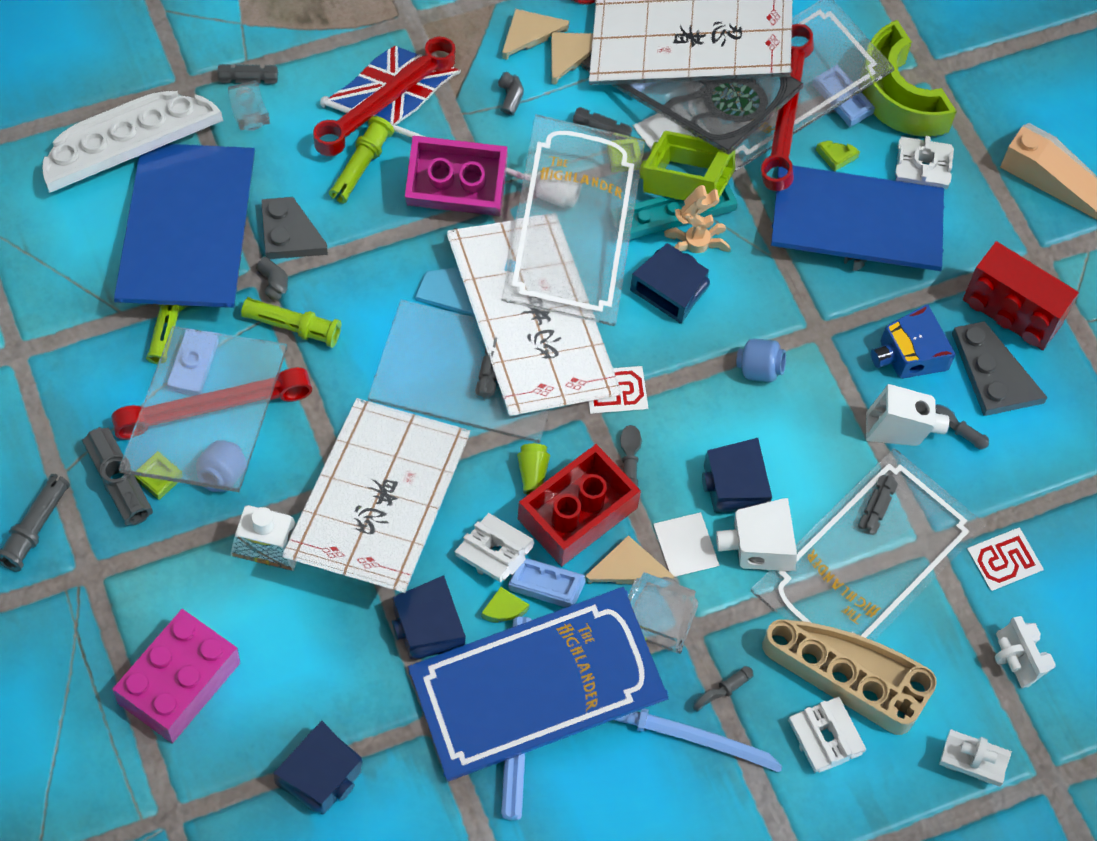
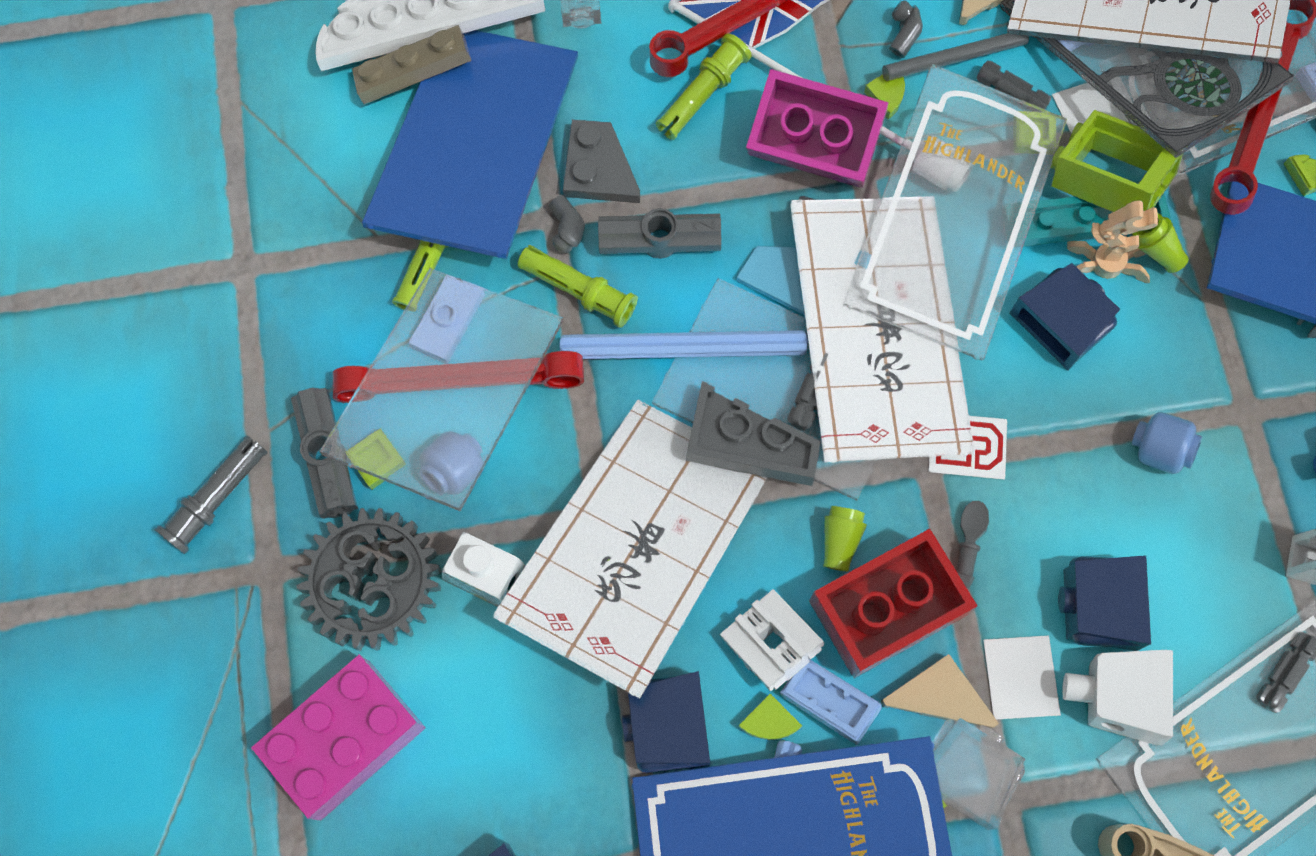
camera: 20 degrees right, 10 degrees up
(123, 176) = (411, 64): none -> dark tan plate
(143, 556) = (334, 565): none -> dark grey gear
(332, 276) = (634, 235): none -> dark grey piece
(387, 350) = (686, 344): none -> light blue axle
(447, 412) = (740, 440): none -> dark grey wing
(506, 136) = (888, 91): none -> lime tile
(551, 107) = (953, 55): none -> dark grey bar
(731, 219) = (1163, 245): none -> lime cone

